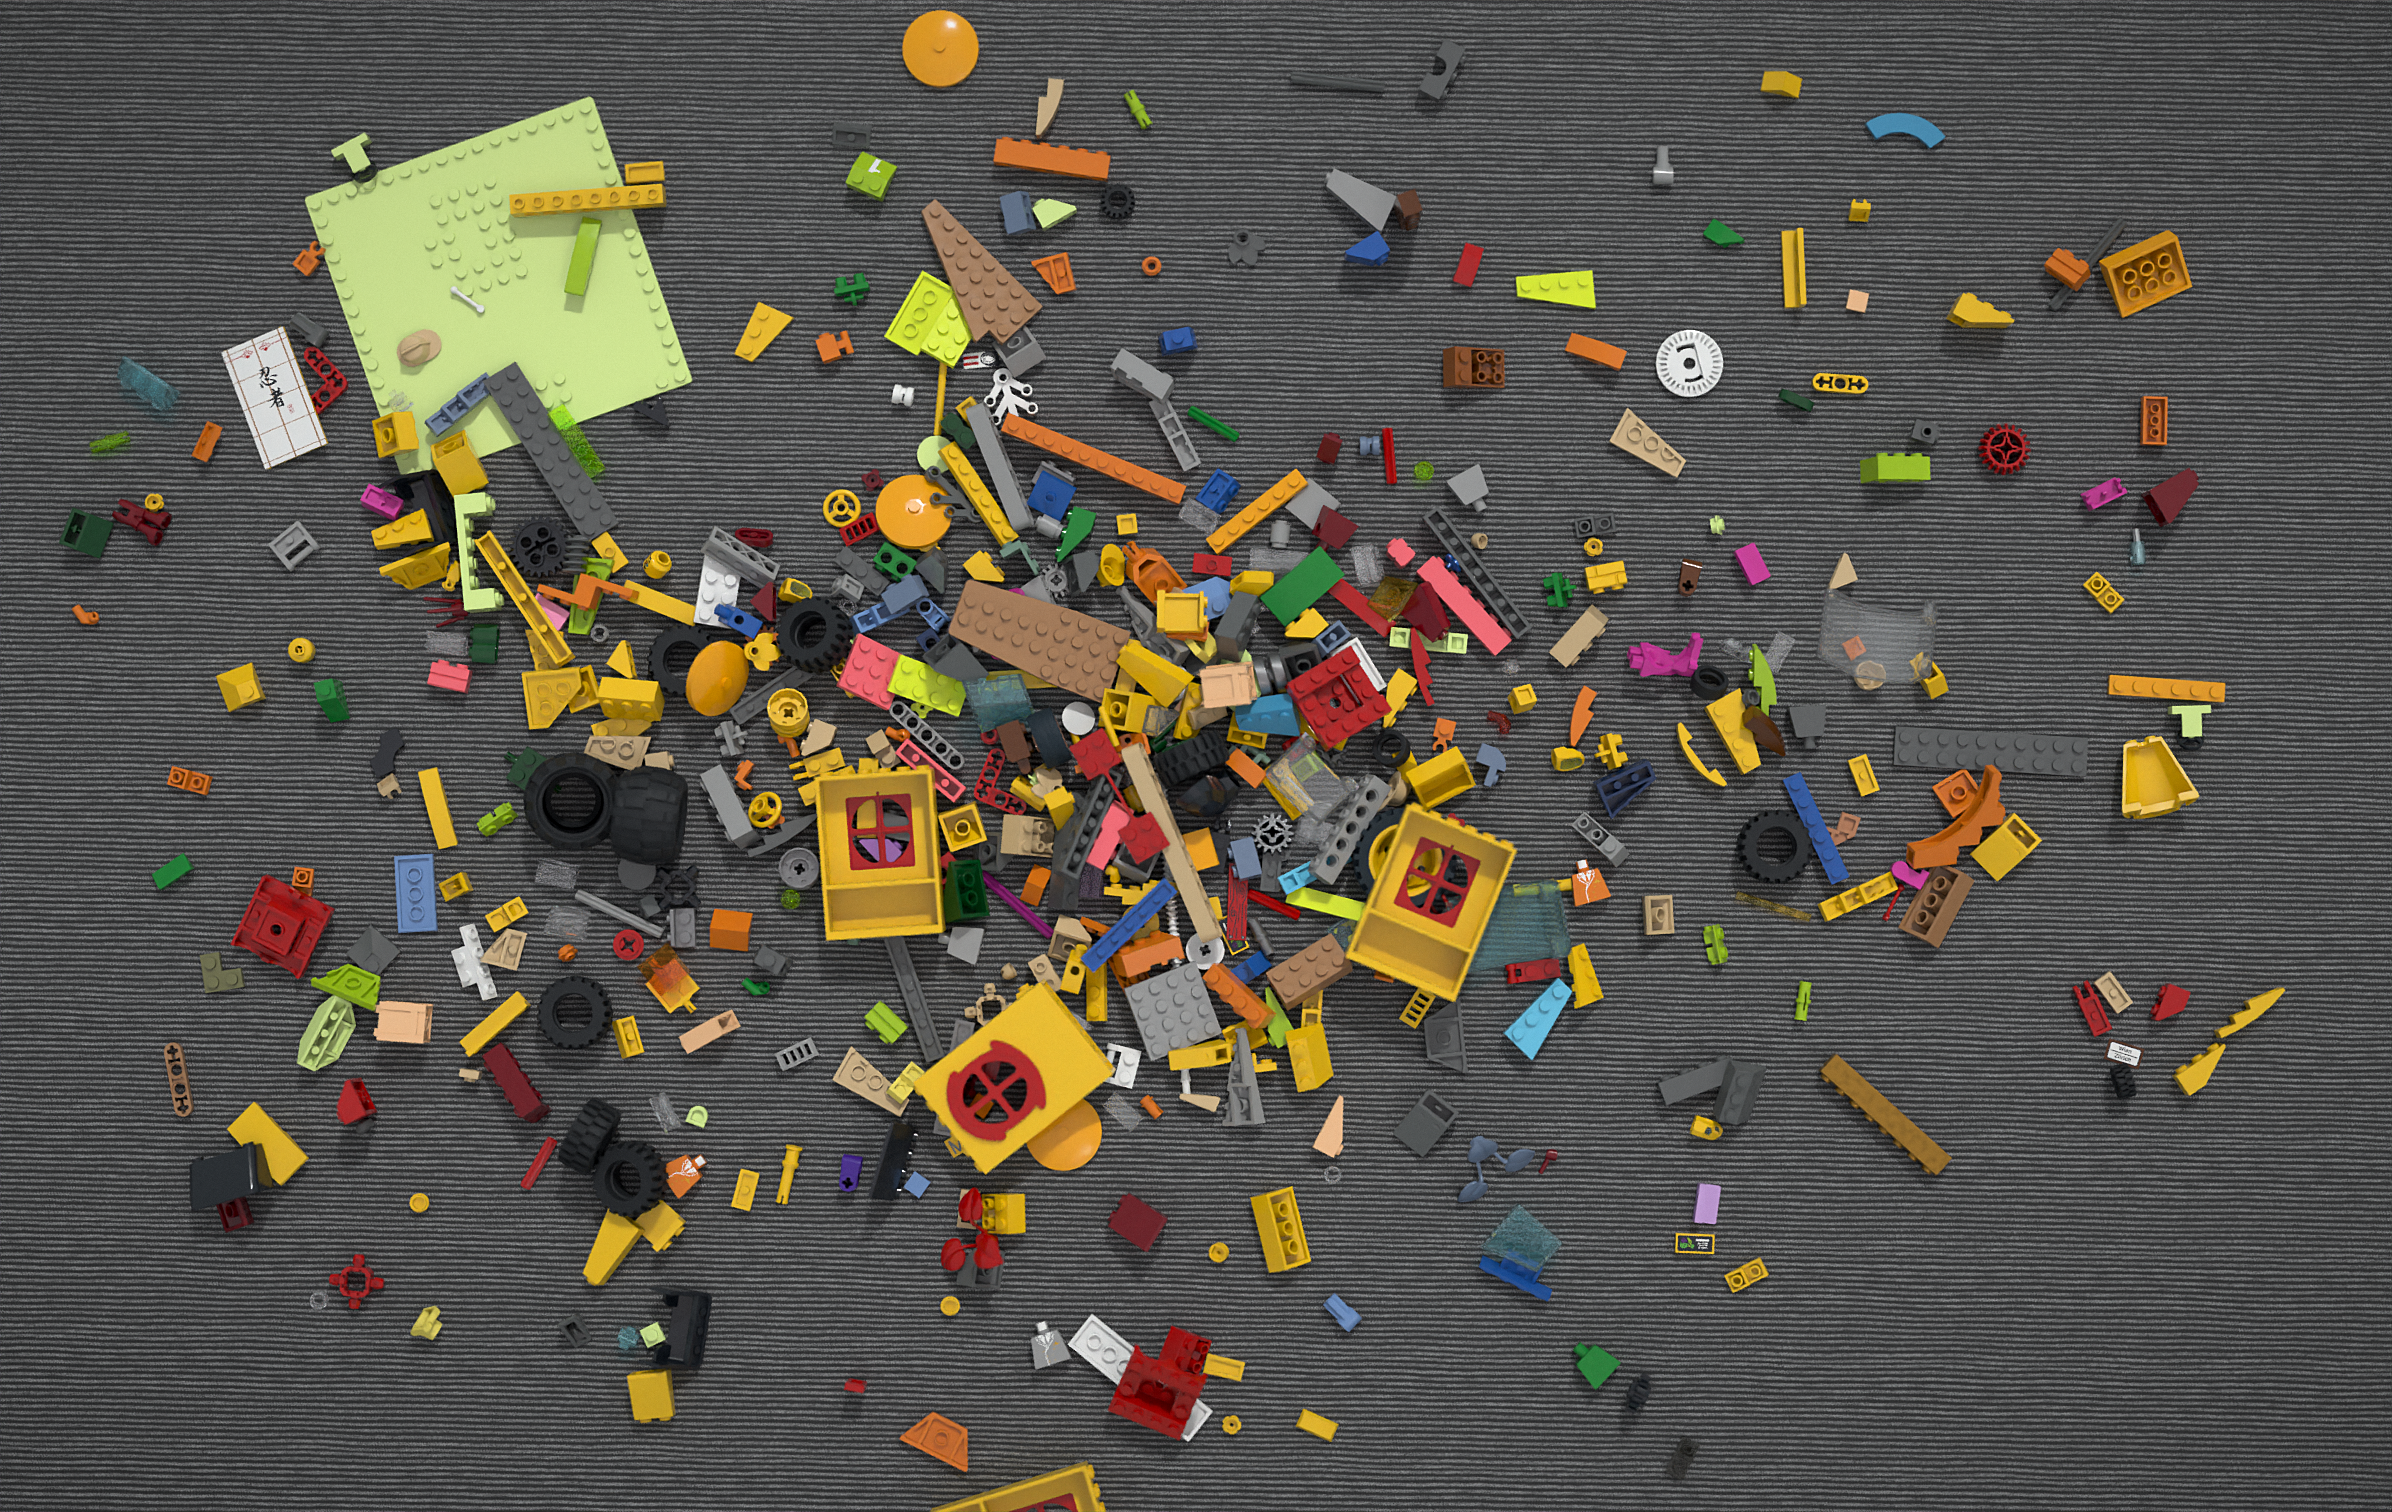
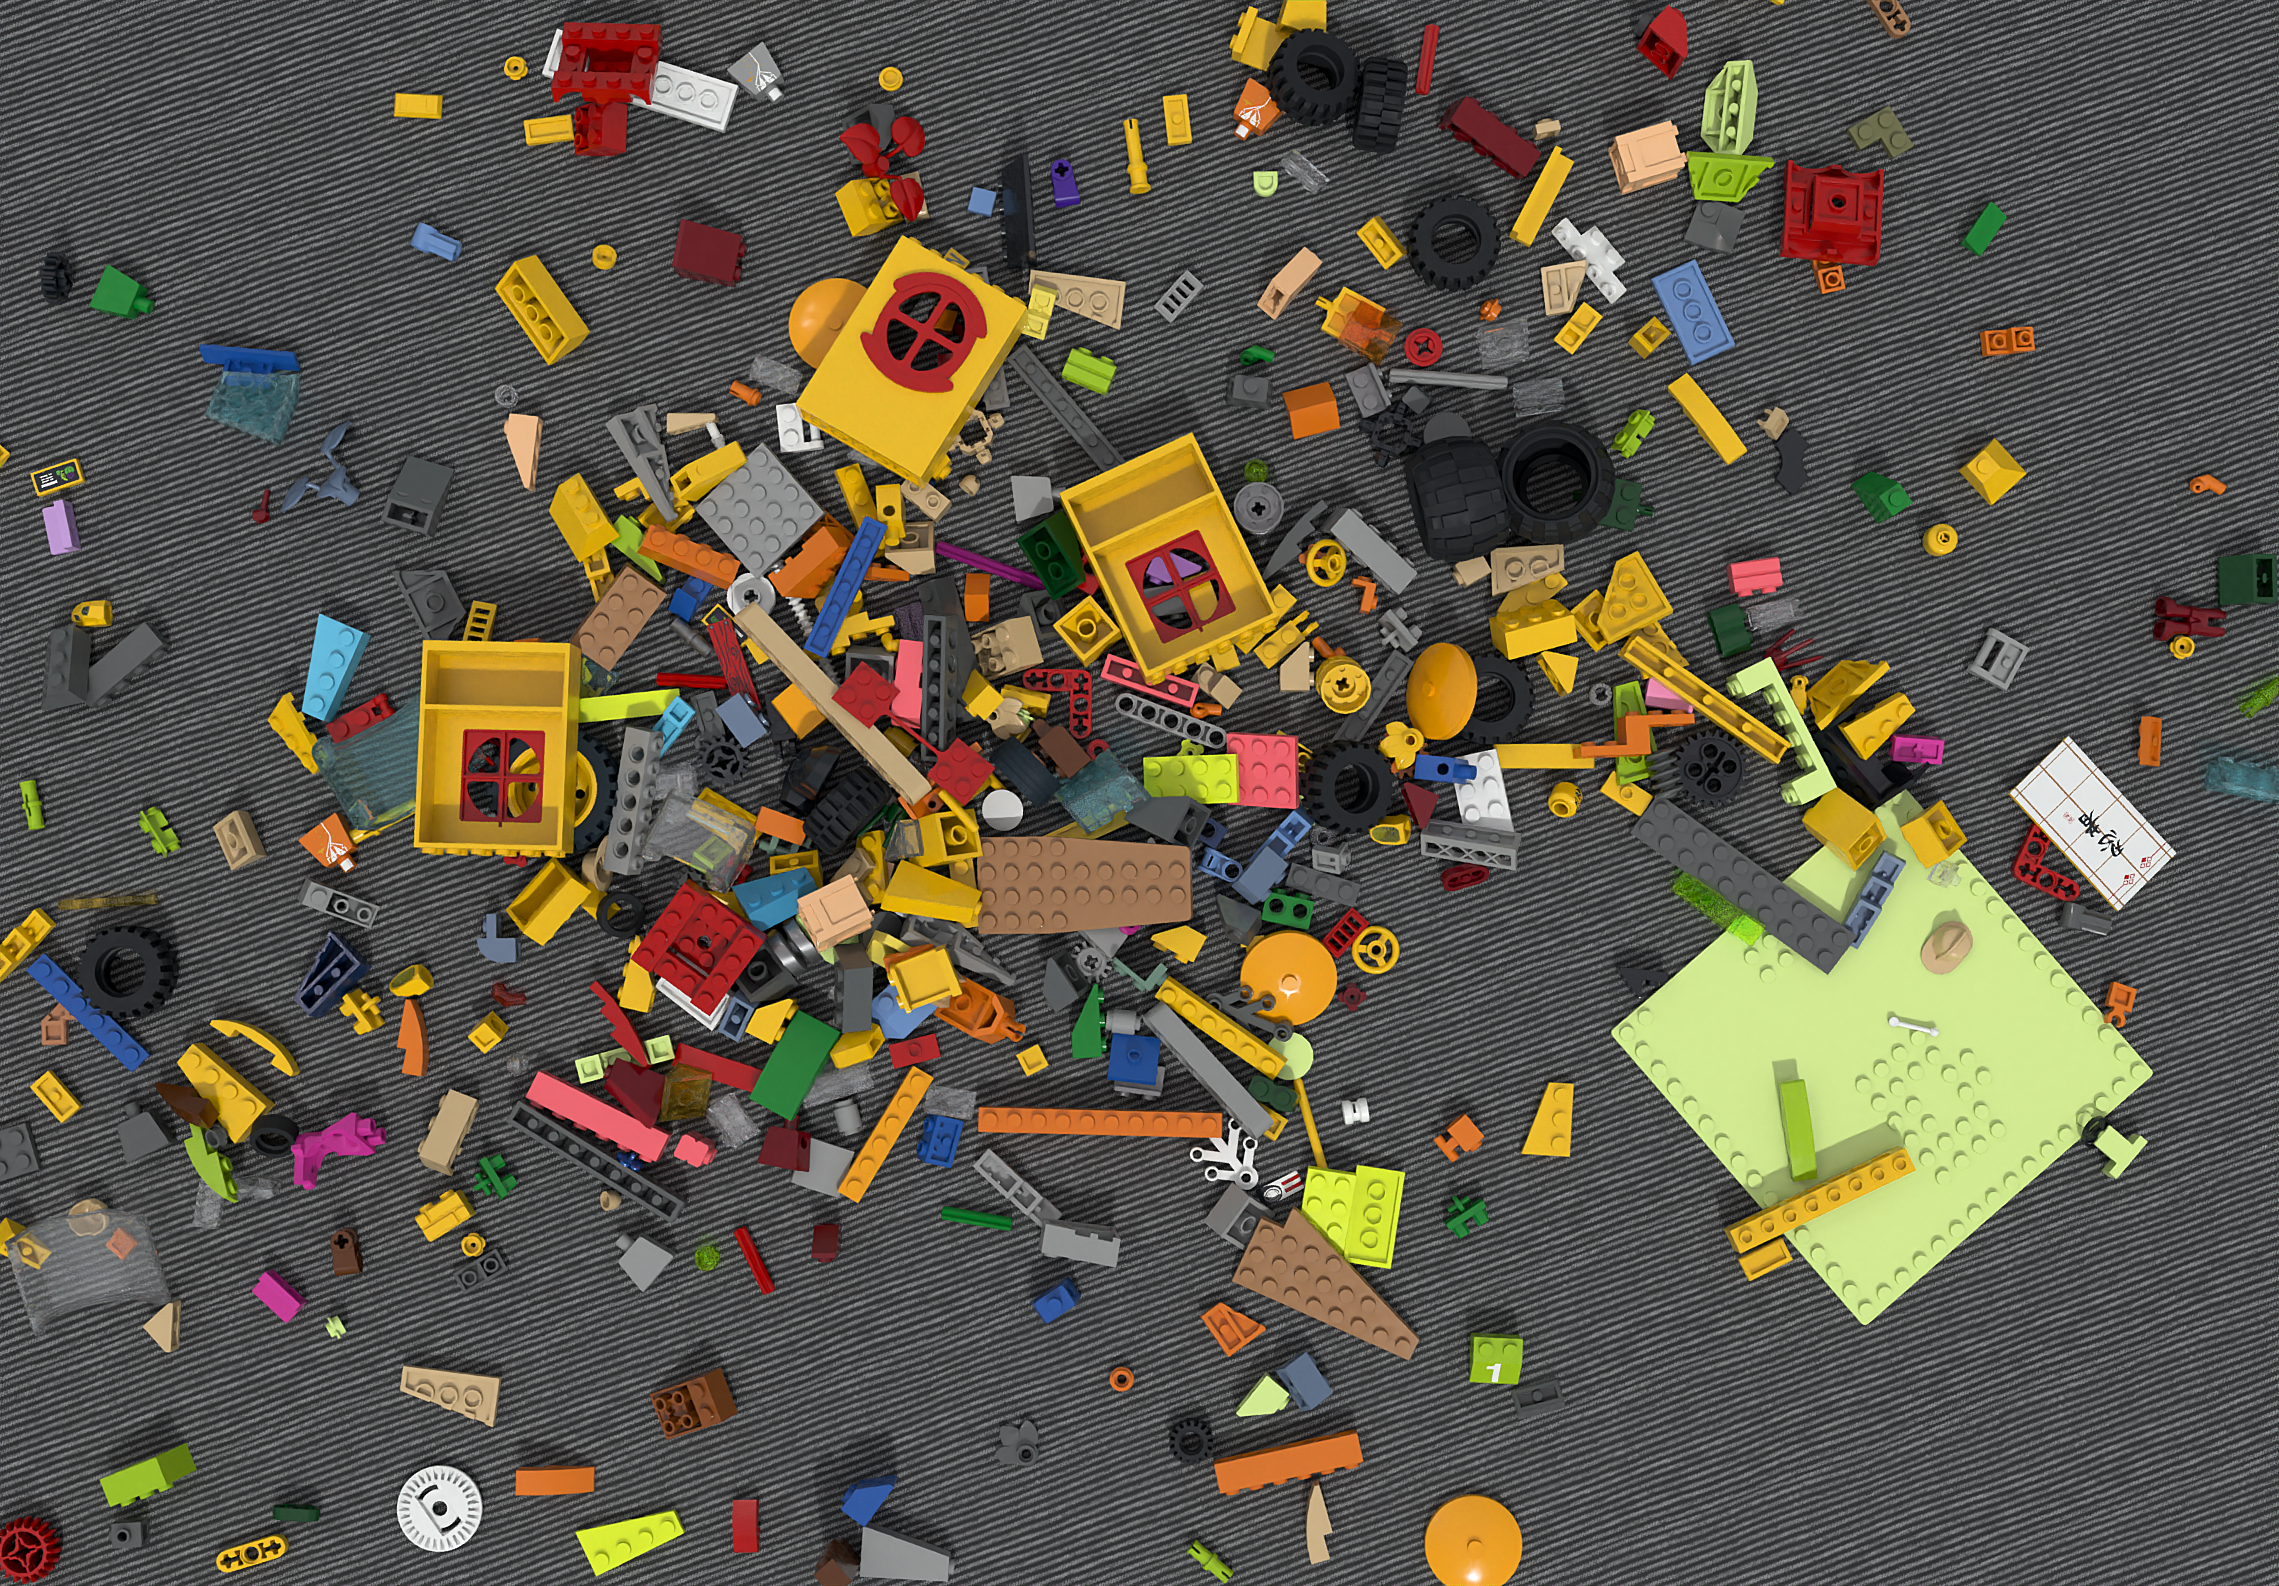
camera: 155 degrees right, 0 degrees up
(1111, 566) = (1030, 1002): yellow piece -> none
(1365, 445) = (781, 1263): sand blue wheel -> none
(1443, 731) = (569, 959): orange plate -> none

